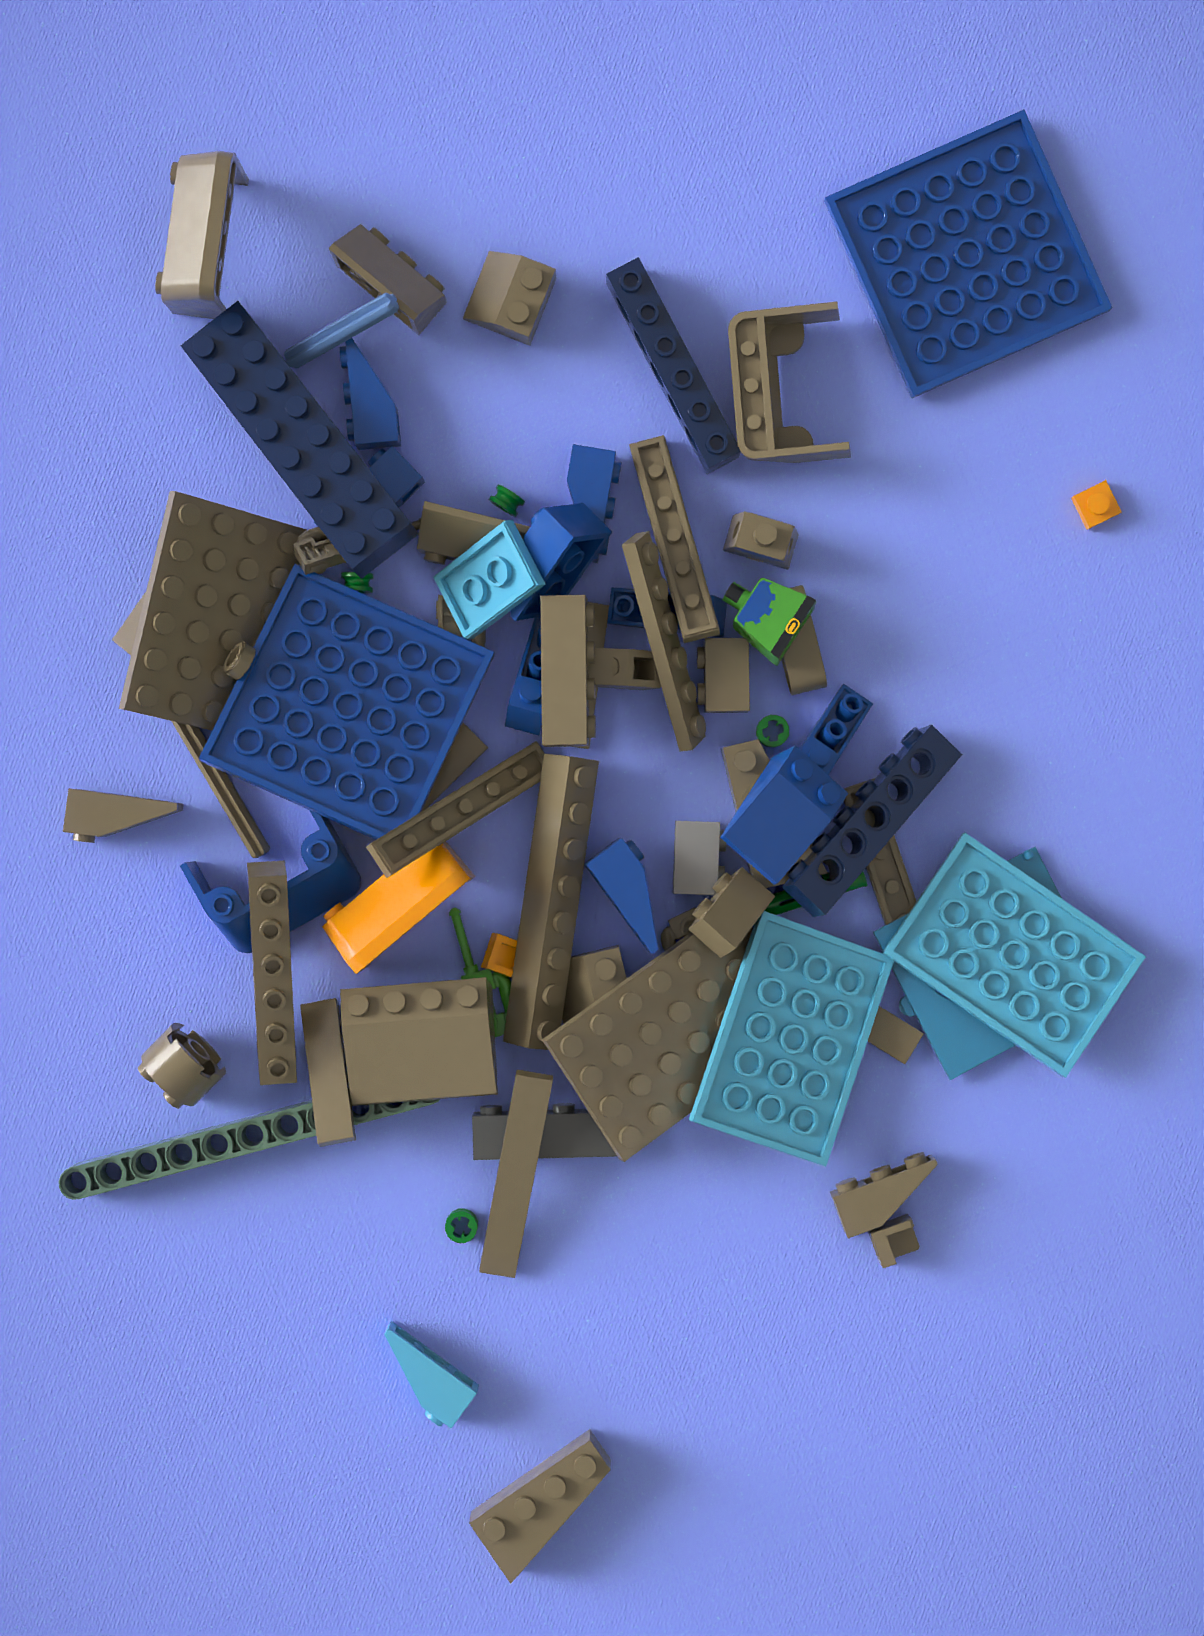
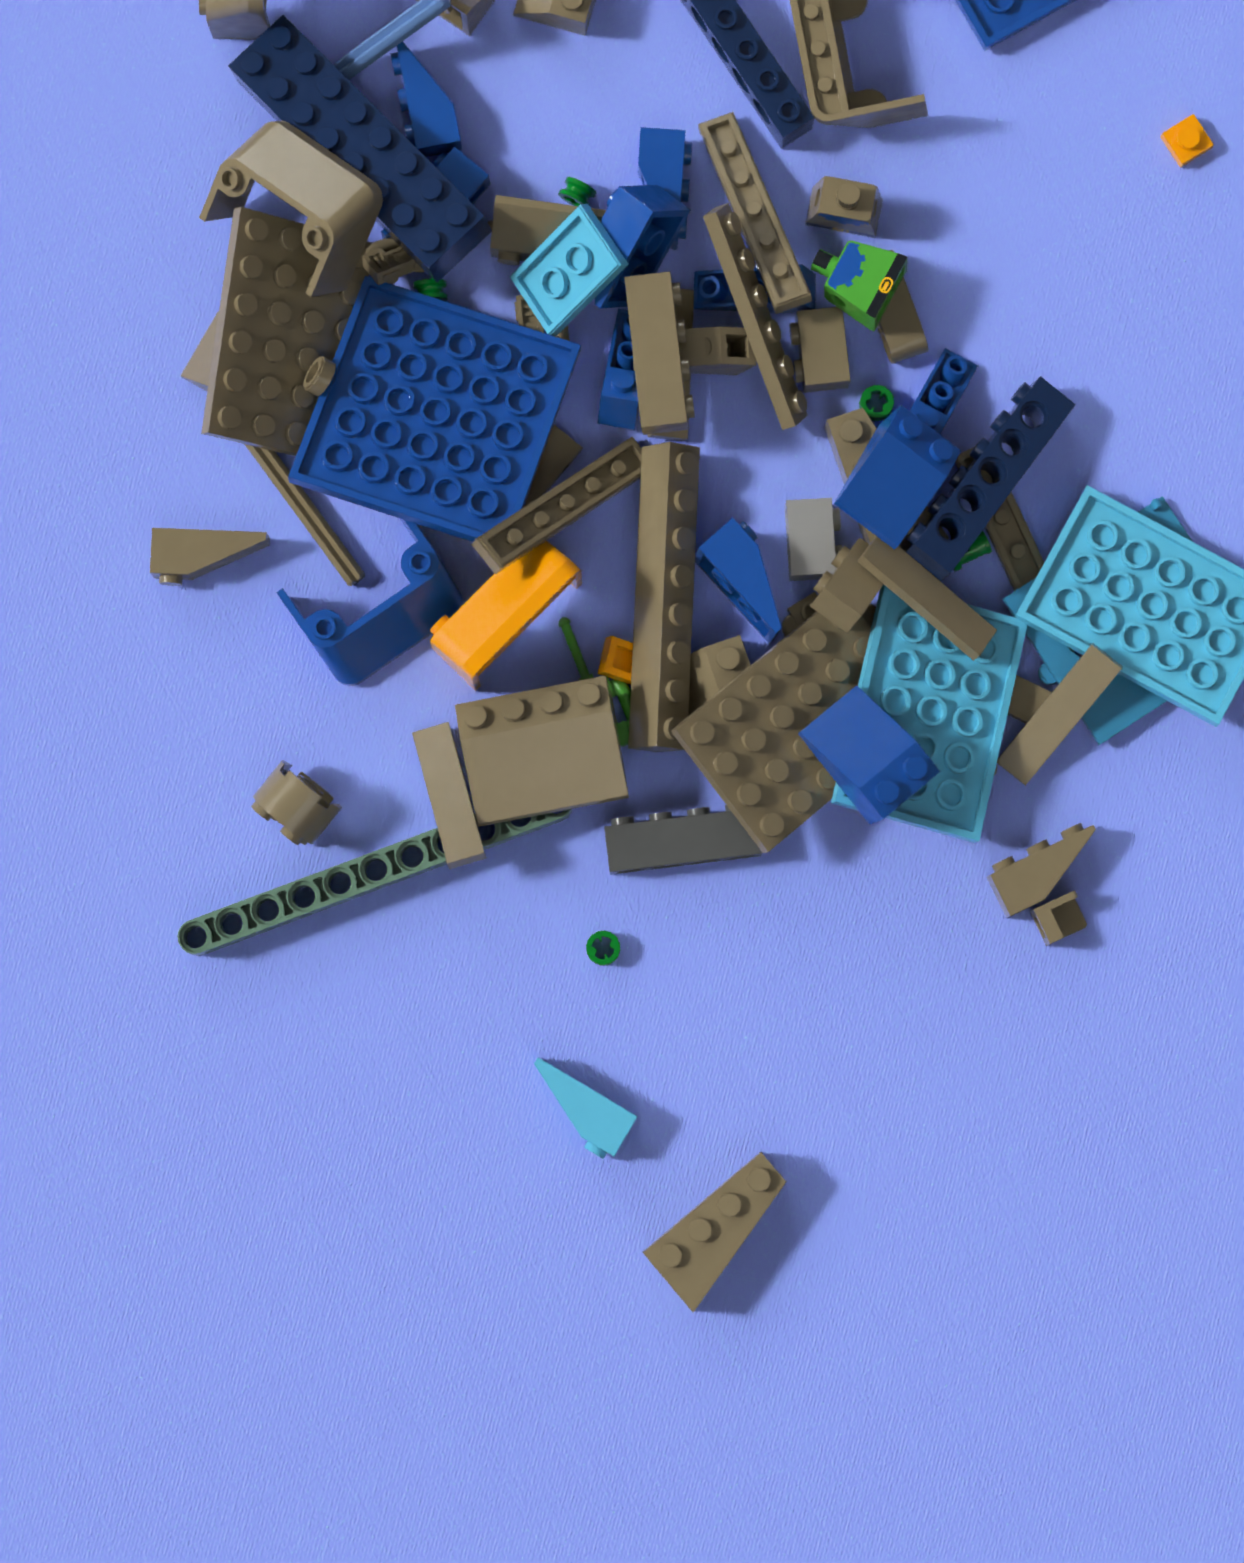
camera: 10 degrees left, 5 degrees down
(249, 474) = (327, 190): none -> dark tan windscreen
(272, 972) = (382, 693): dark tan brick -> none
(516, 1173) = (655, 881): dark tan tile -> none
(729, 1082) = (868, 755): none -> blue slope
(801, 931) = (928, 597): none -> dark tan tile
(915, 1049) = (1059, 714): none -> dark tan tile

